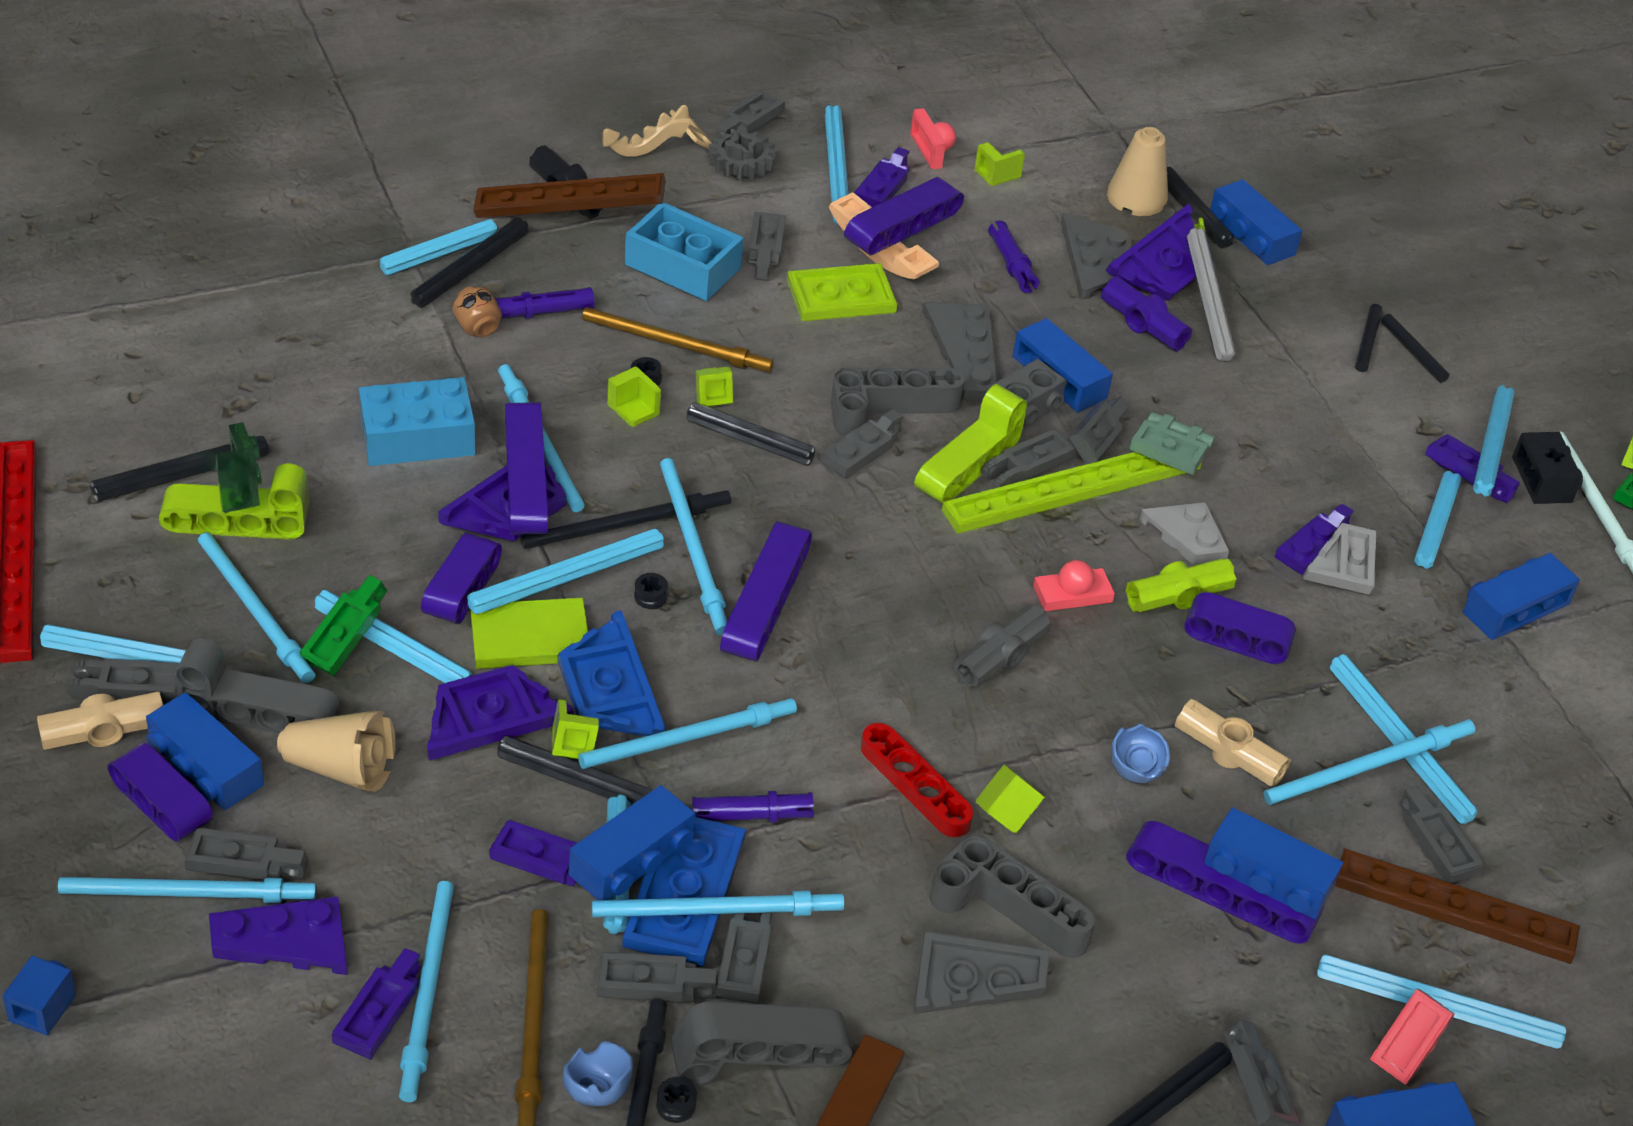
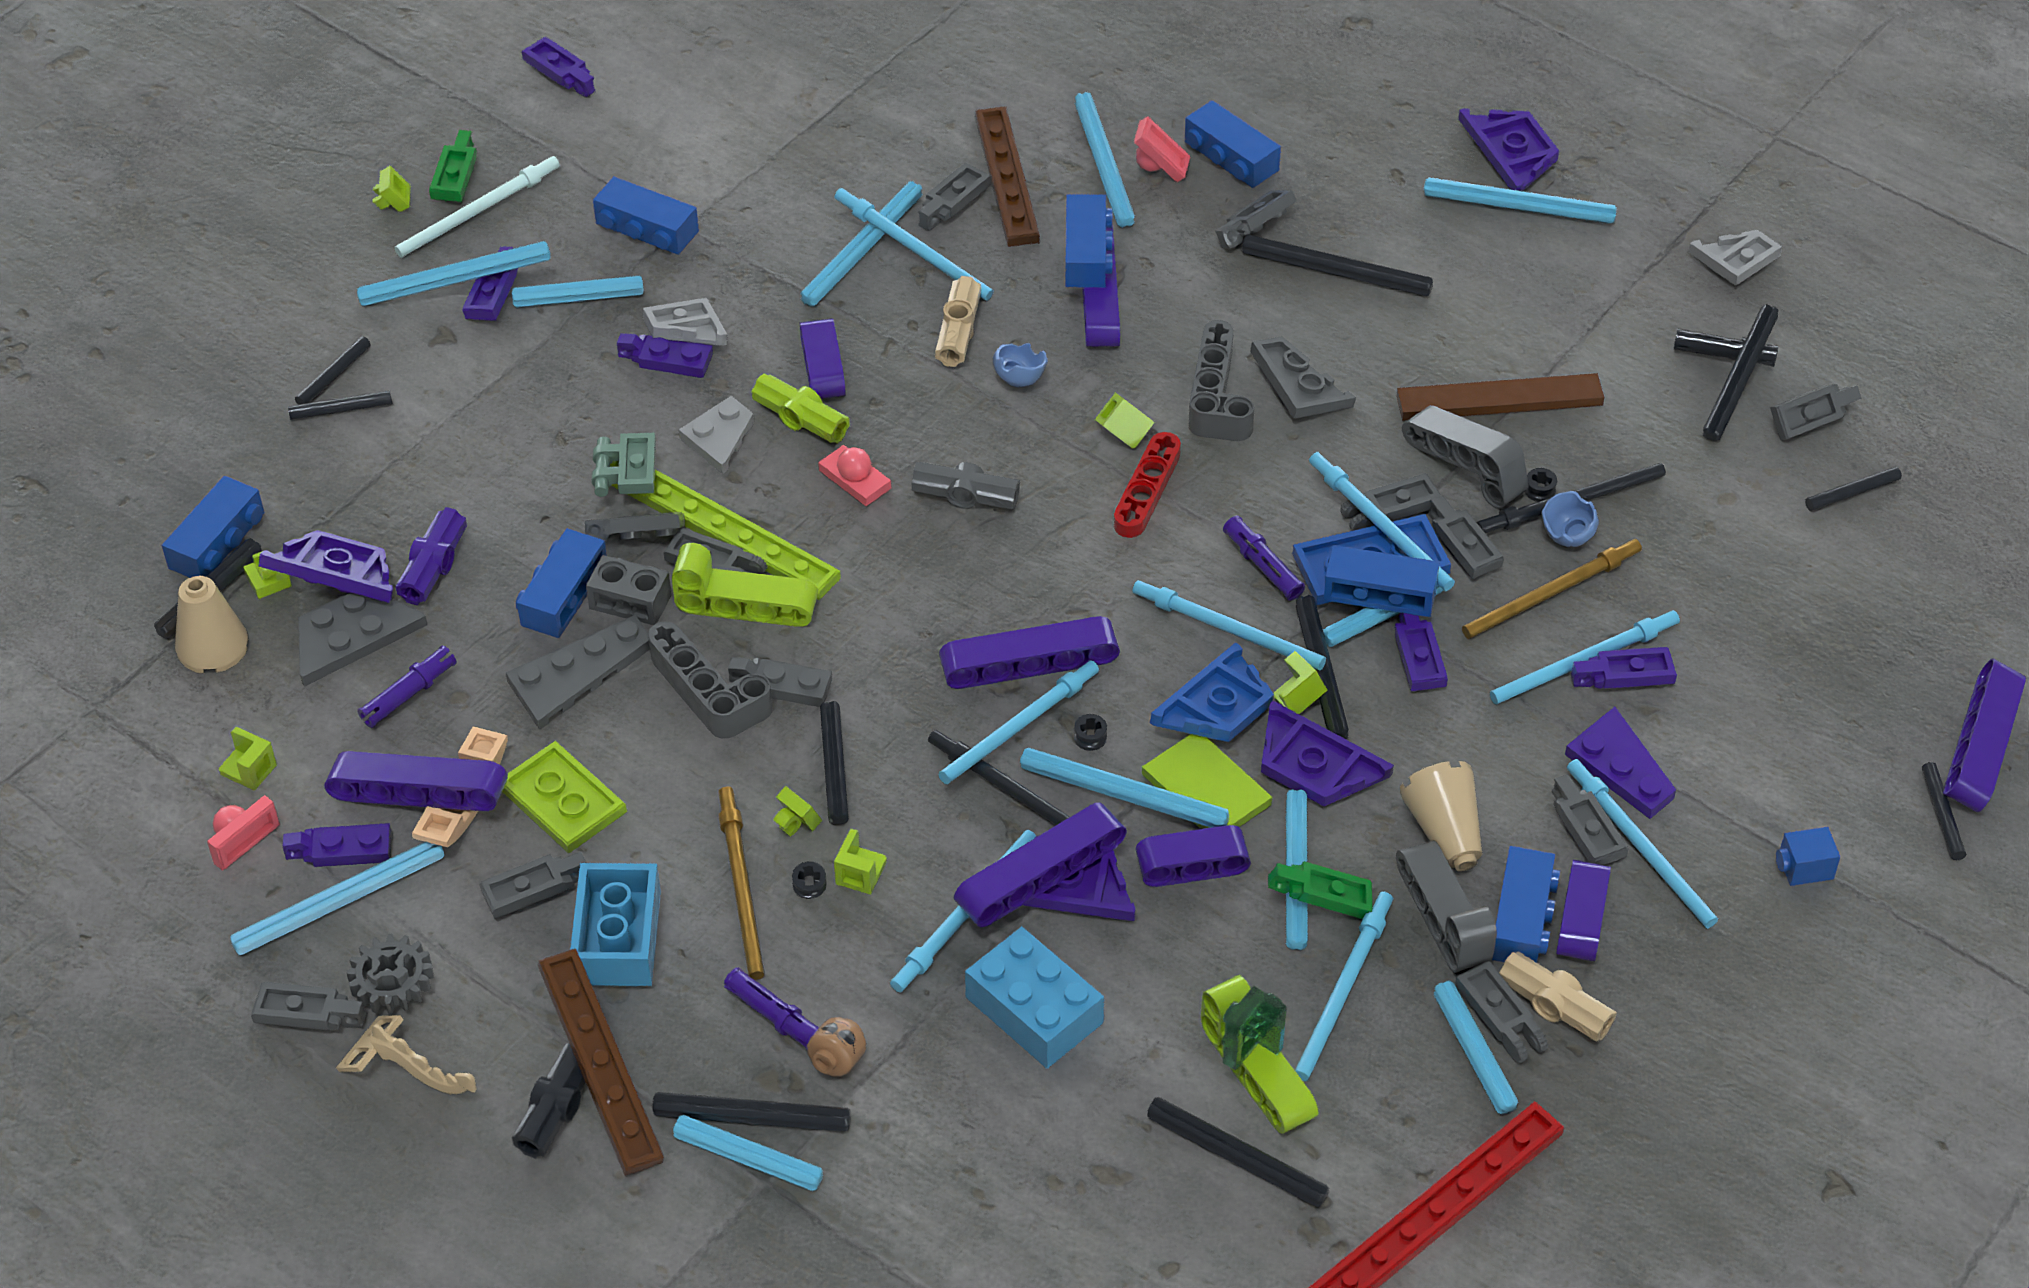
camera: 115 degrees left, 5 degrees up
(1211, 295) = (375, 512): light grey axle -> none
(1547, 467) = (460, 238): black brick -> none

